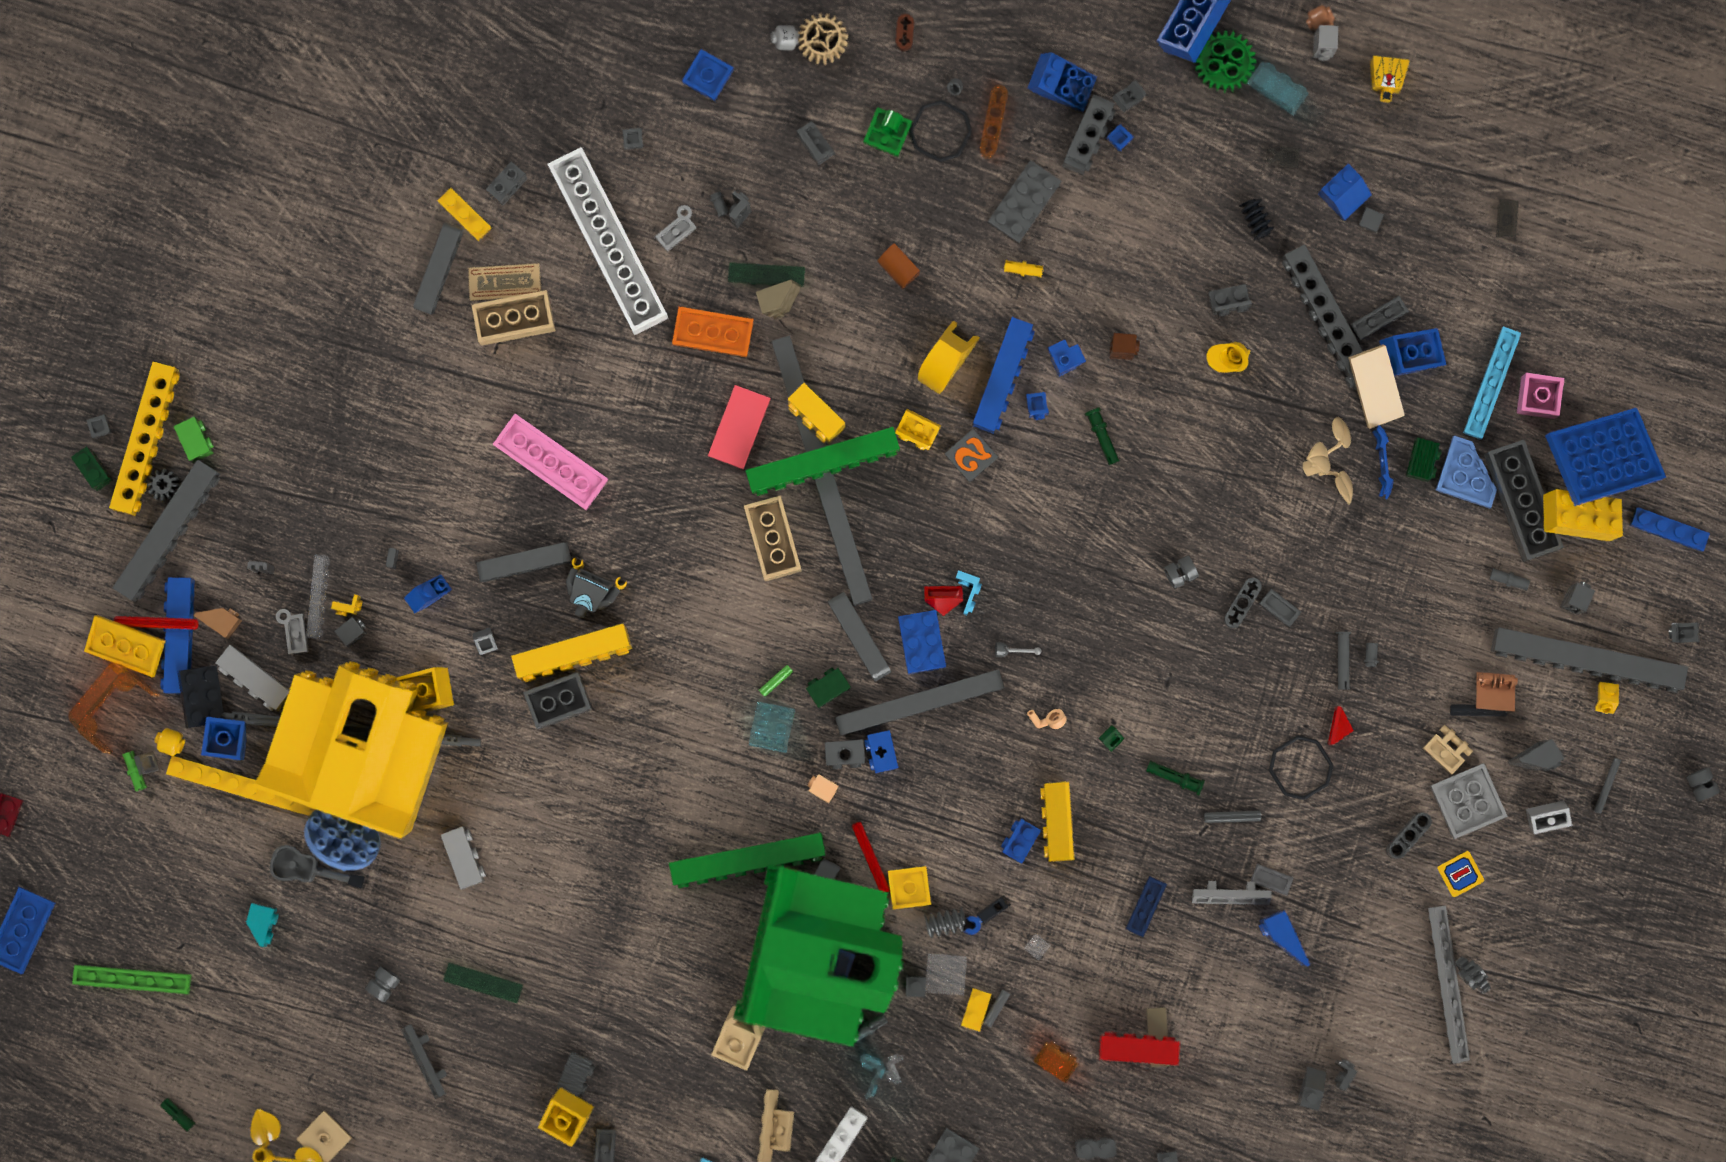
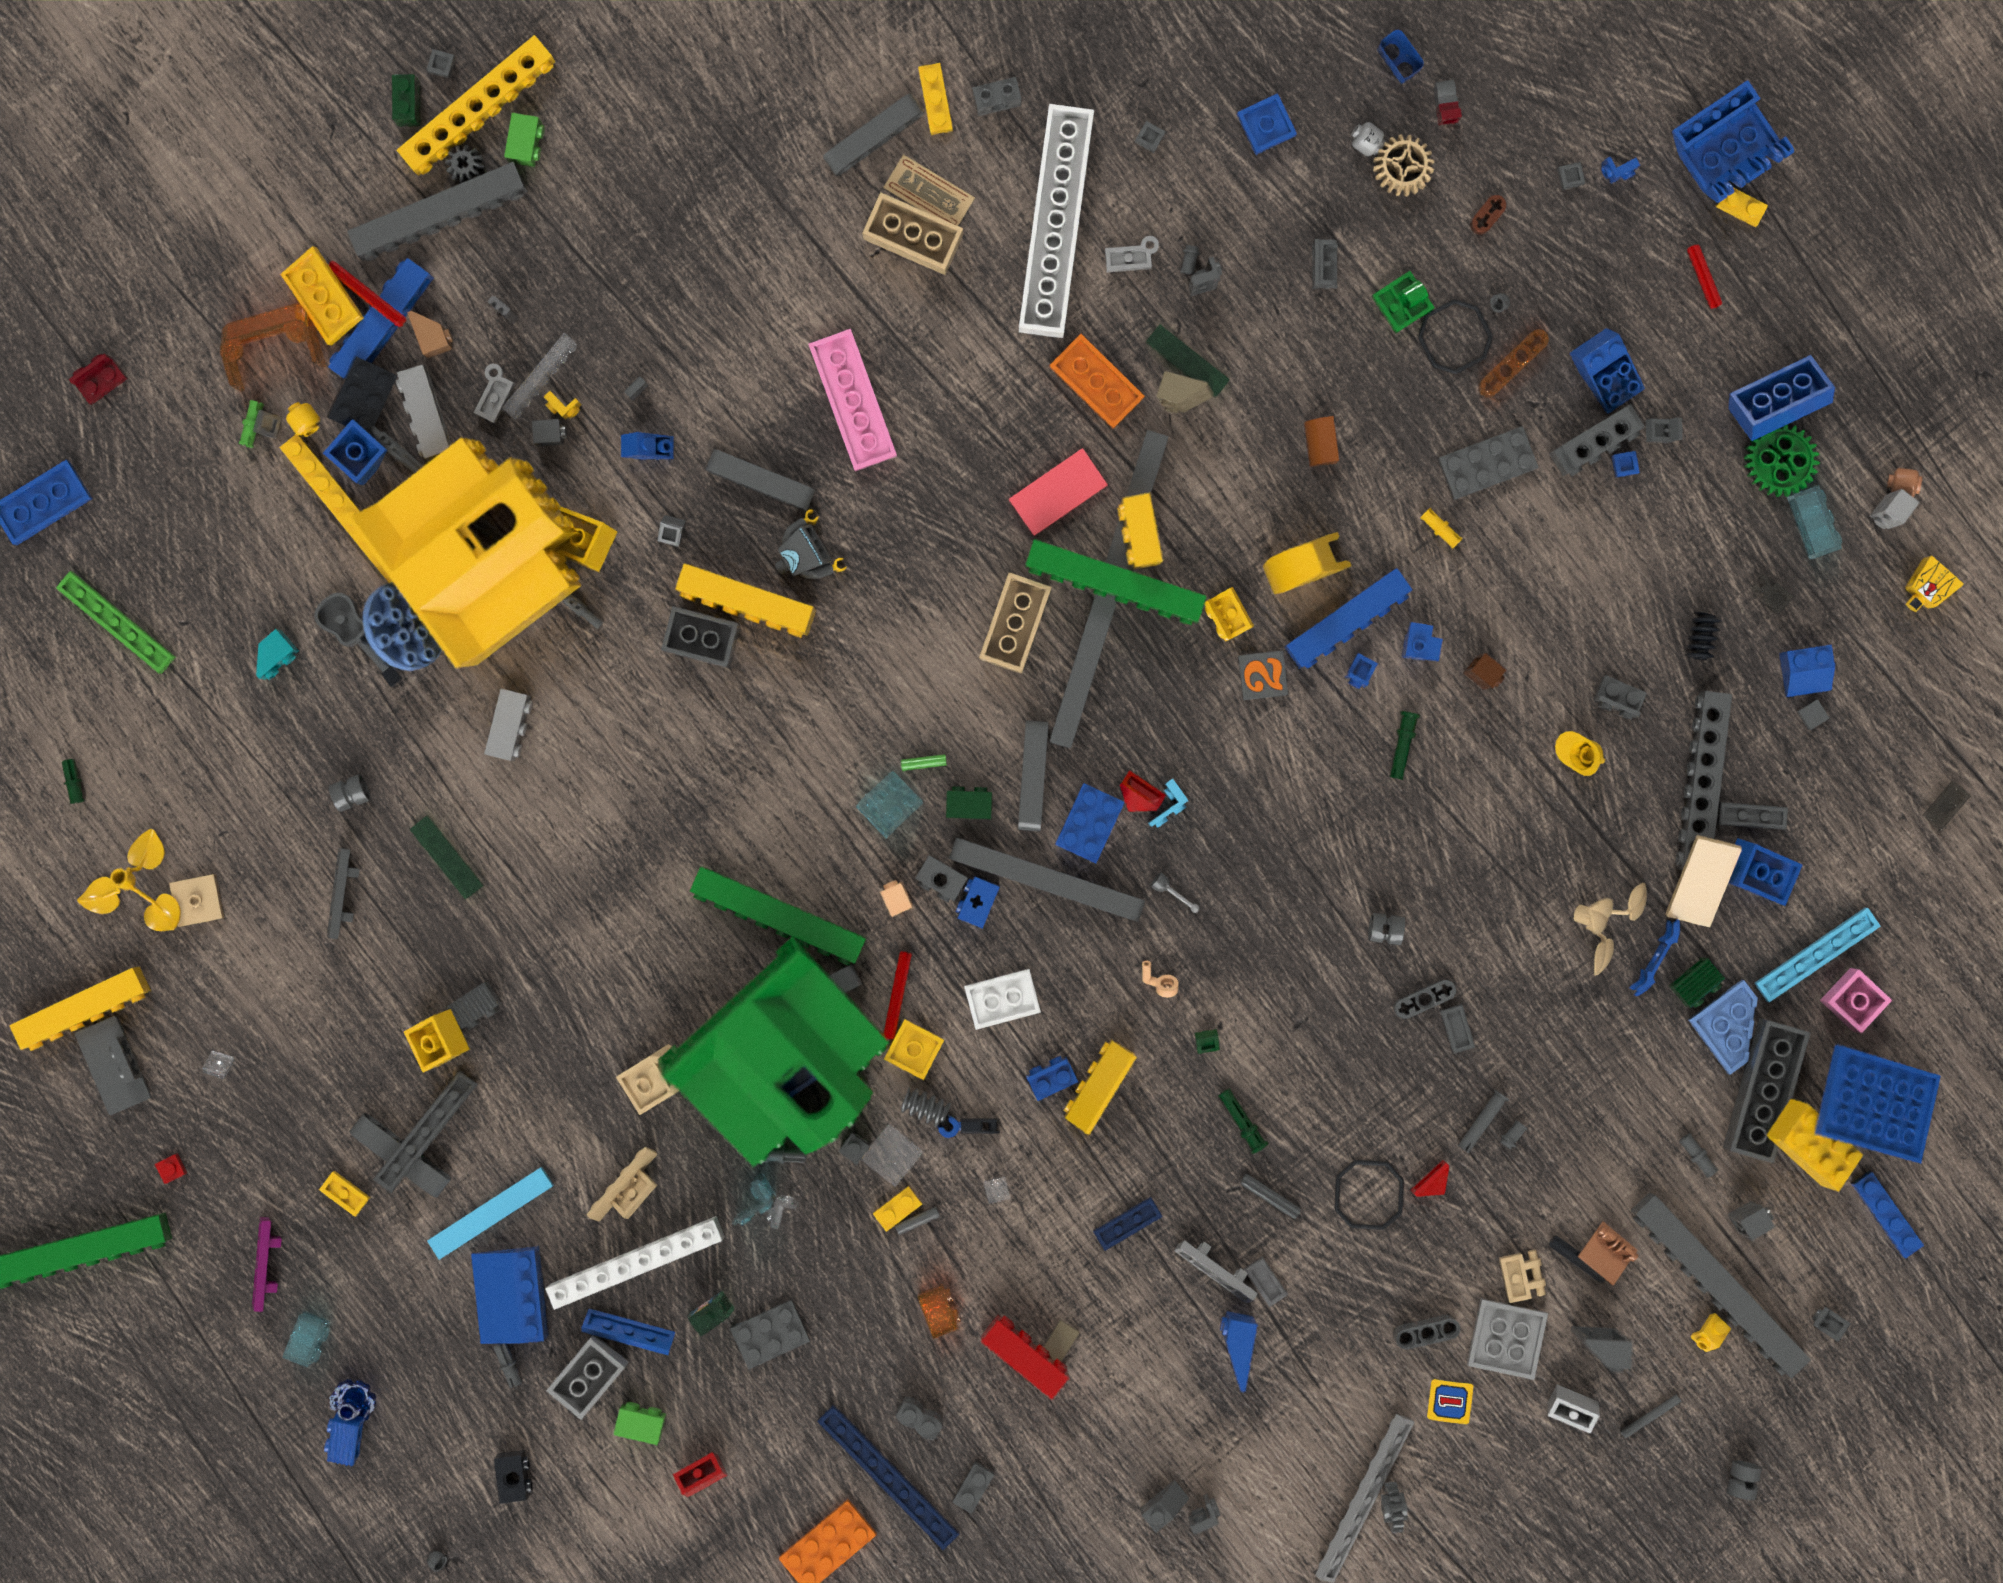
camera: 35 degrees right, 5 degrees up
(947, 809) = (1002, 999): none -> white tile

